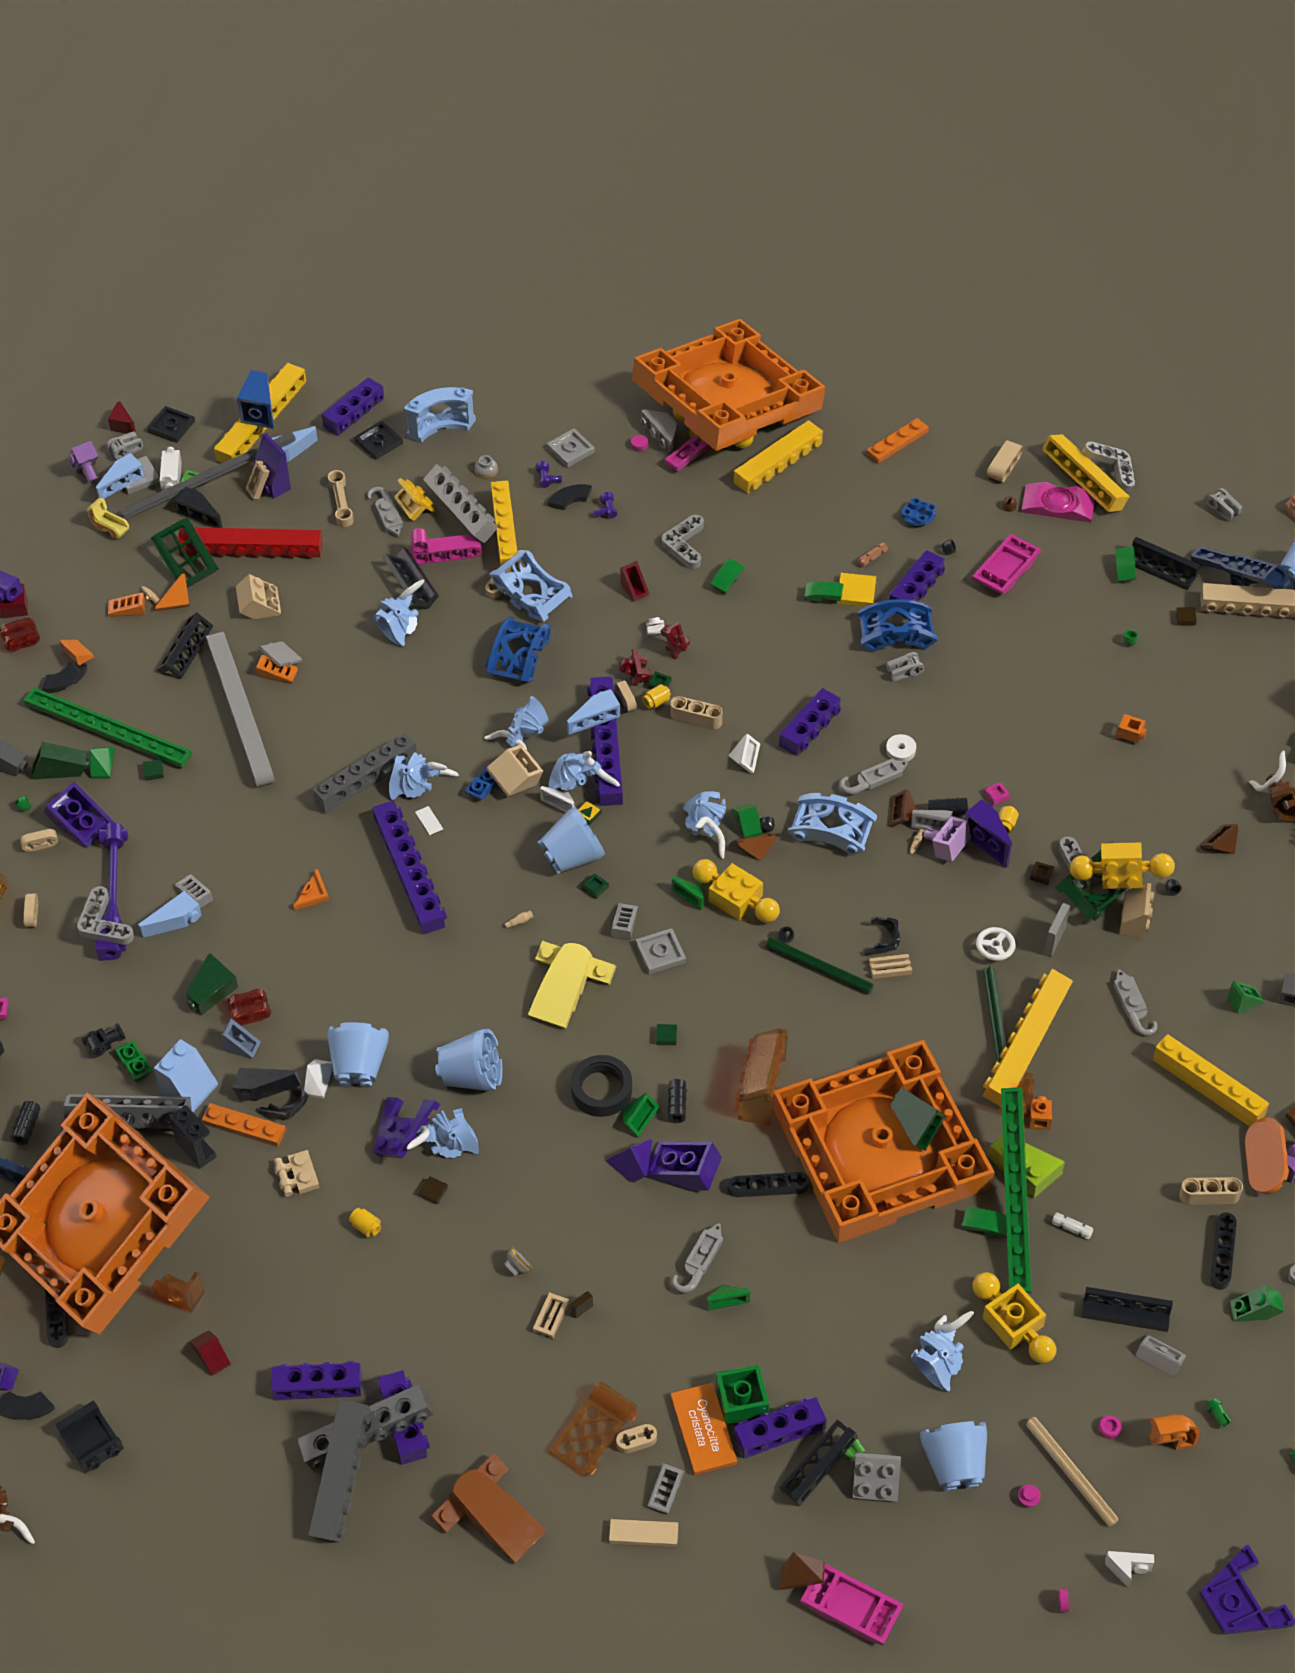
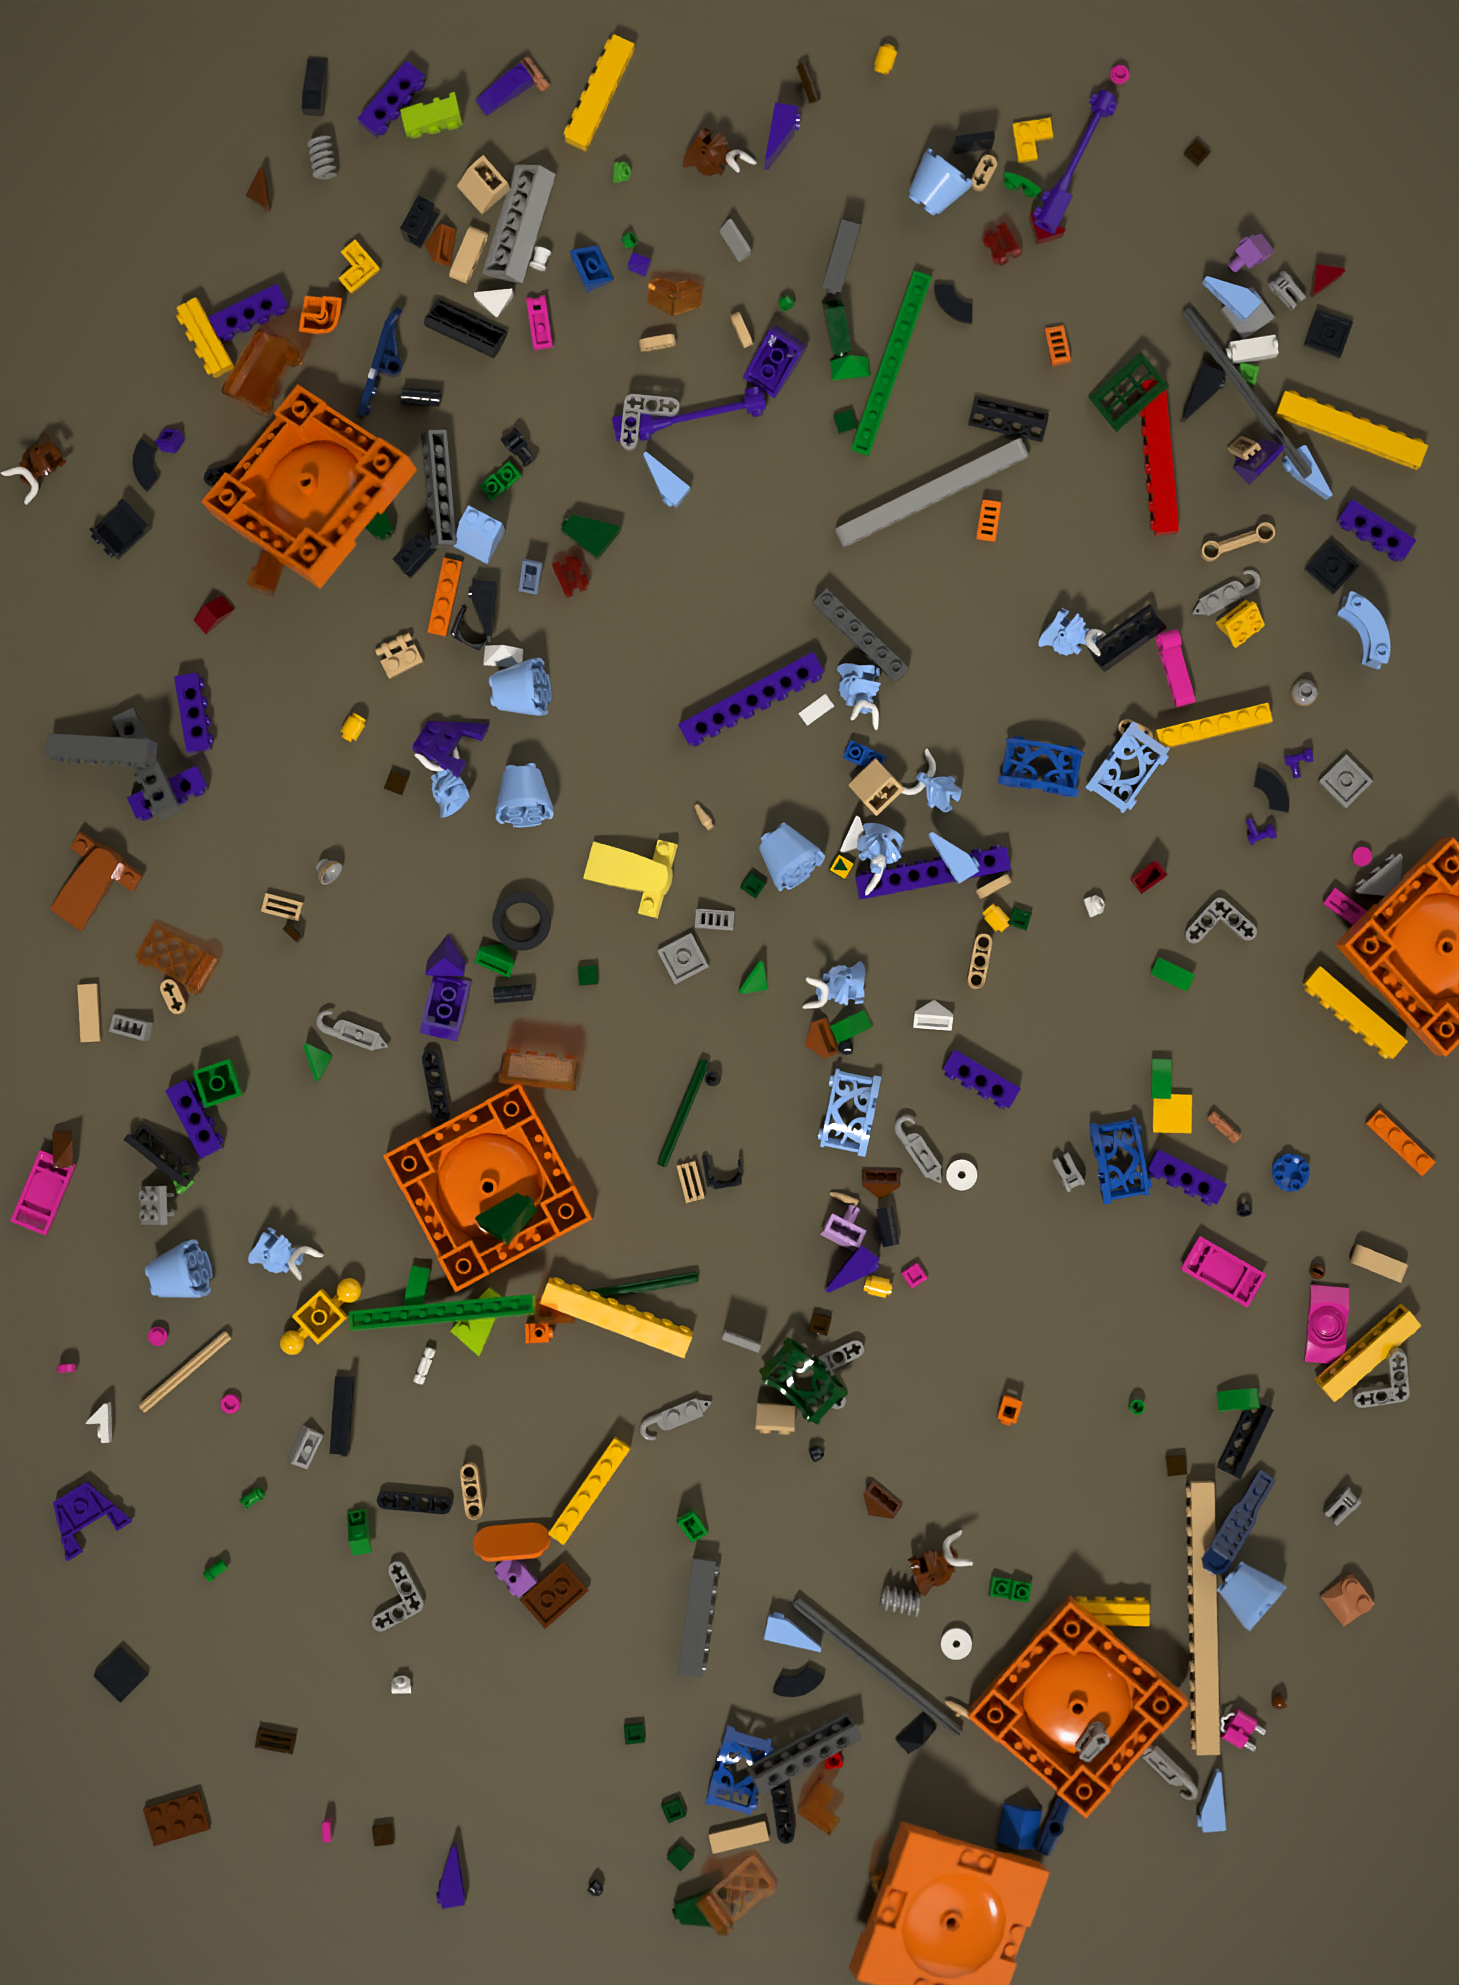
camera: 85 degrees right, 35 degrees up
(76, 651) = (987, 308): orange slope -> none
(105, 520) = (1170, 299): light yellow animal -> none
(150, 595) = (1076, 367): tan helmet -> none
(176, 596) = (1074, 395): orange tile -> none
(206, 896) = (685, 501): light grey slope -> none
(255, 401) = (1350, 425): blue slope -> none
(257, 598) = (1080, 482): tan slope -> none
(280, 654) = (1008, 520): light grey piece -> none
(312, 893) = (713, 611): orange tile -> none
(461, 503) = (1234, 674): light grey brick -> none
(633, 667) = (1032, 888): dark red hips -> none
(676, 640) = (1069, 929): dark red hips -> none
(703, 1429) = (189, 1053): orange tile -> none
(735, 891) = (756, 1024): yellow brick -> none
(939, 815) = (867, 1215): light grey slope -> none
(994, 946) = (709, 1289): white piece -> none
(1122, 866) = (805, 1402): yellow brick -> none
(1175, 1429) = (224, 1458): orange brick -> none

